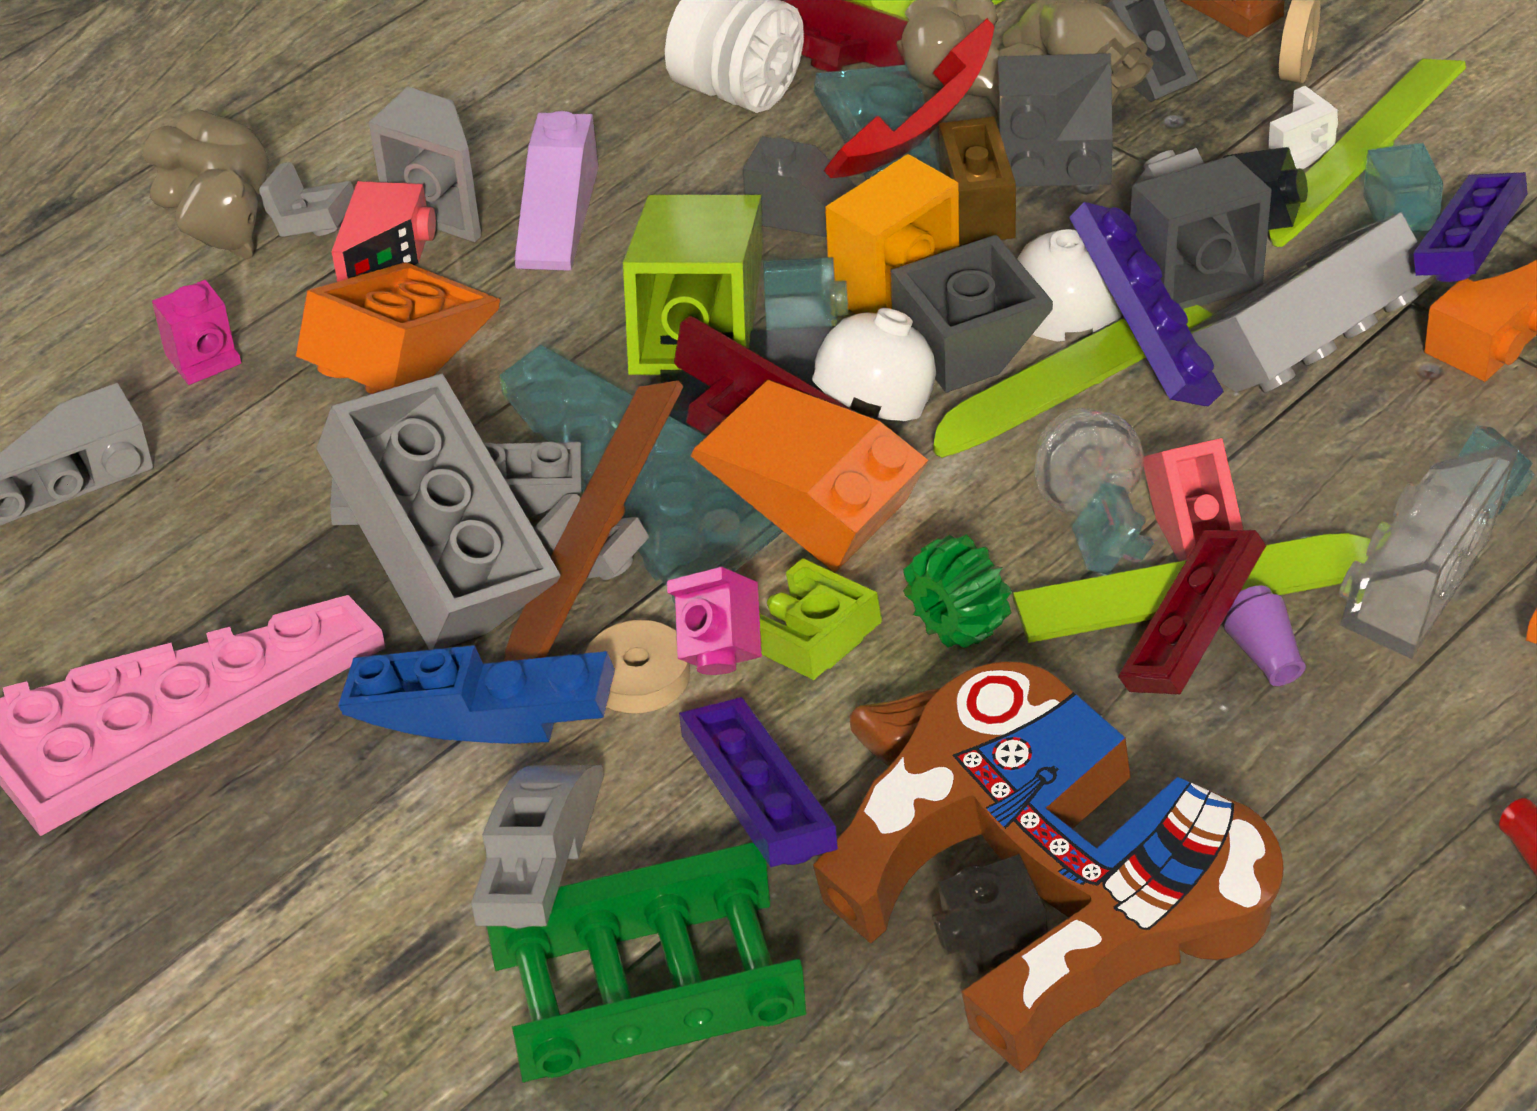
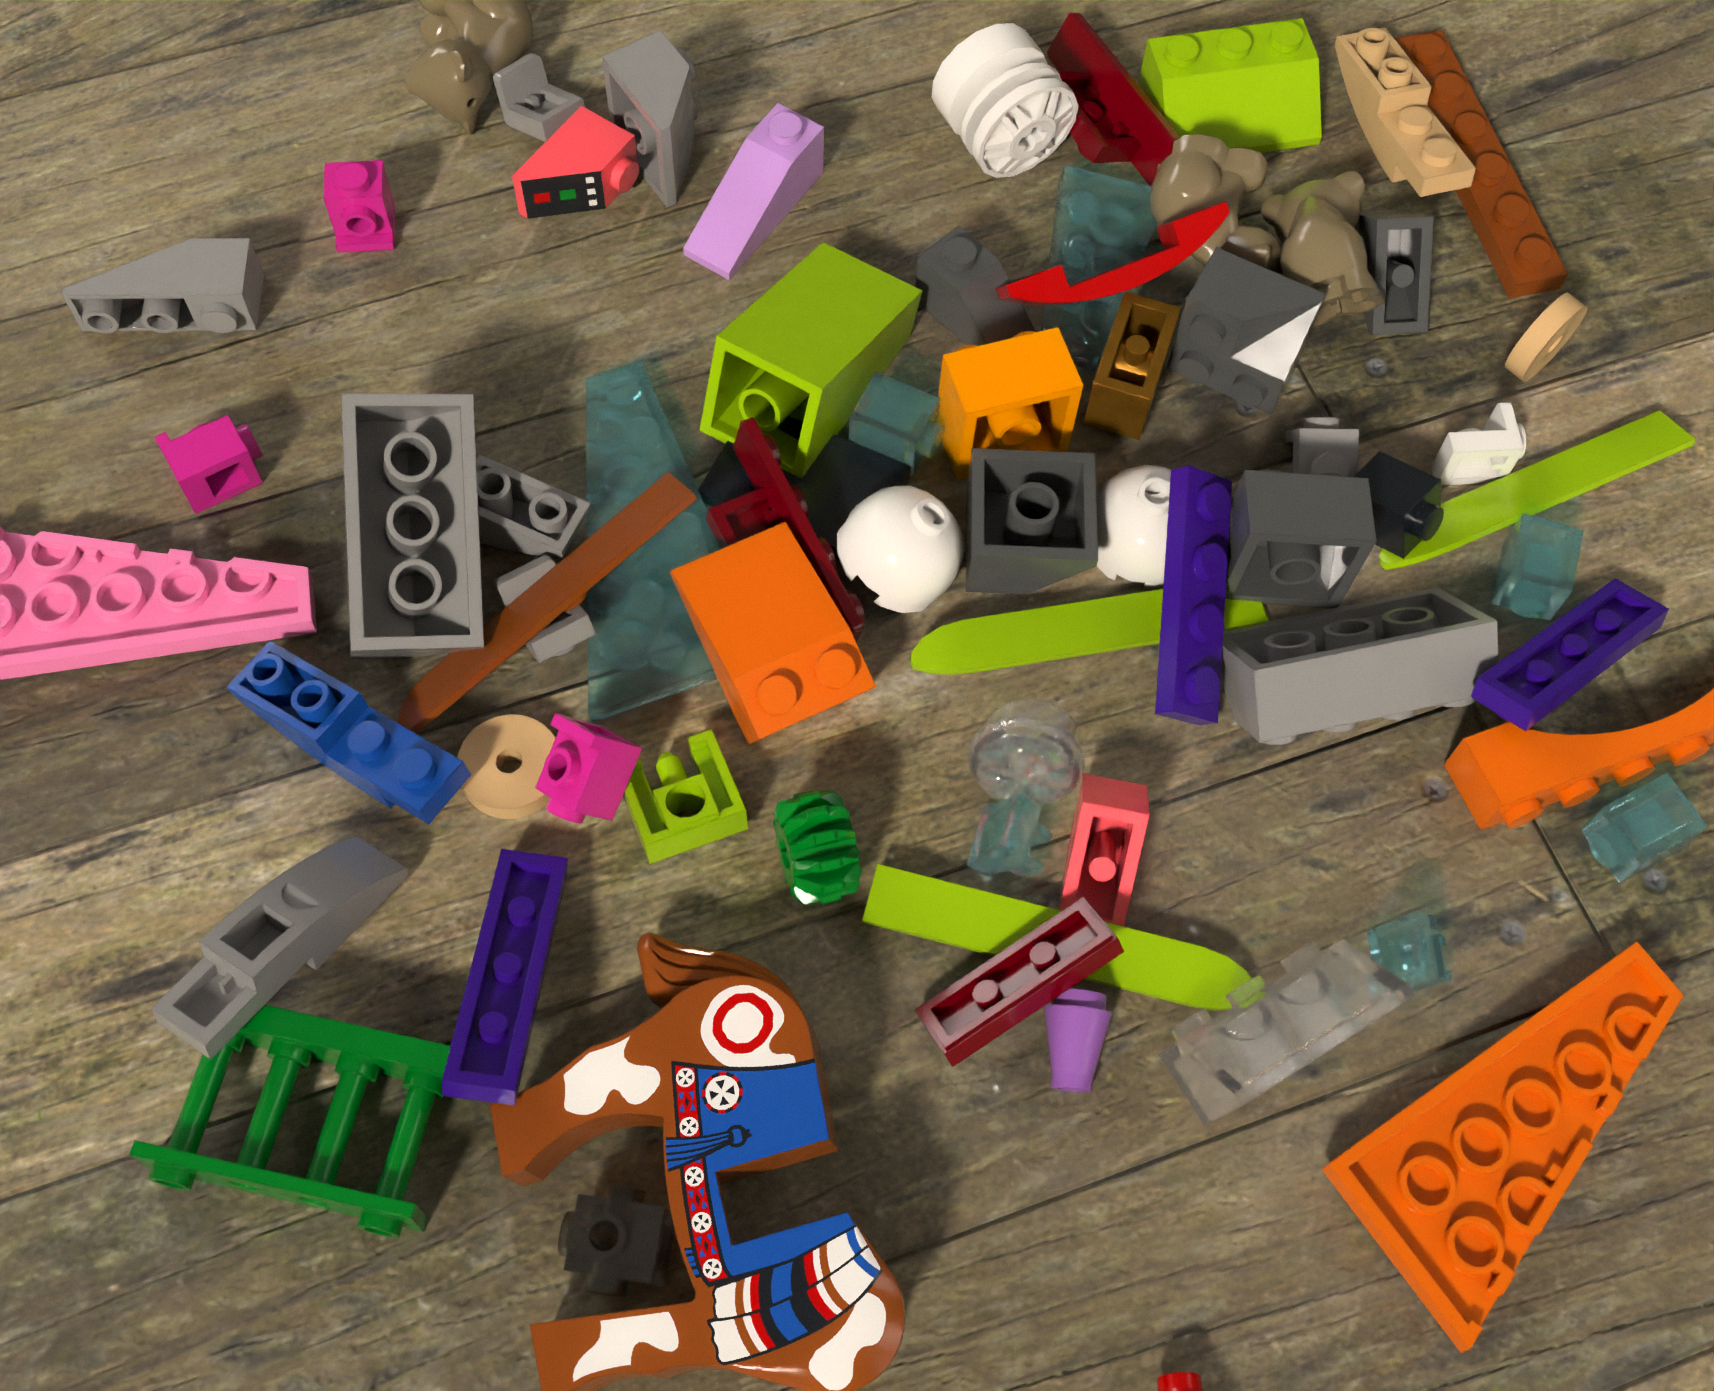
camera: 20 degrees right, 20 degrees up
(193, 563) = (213, 462): none -> dark pink brick
(390, 325) = (528, 277): orange slope -> none

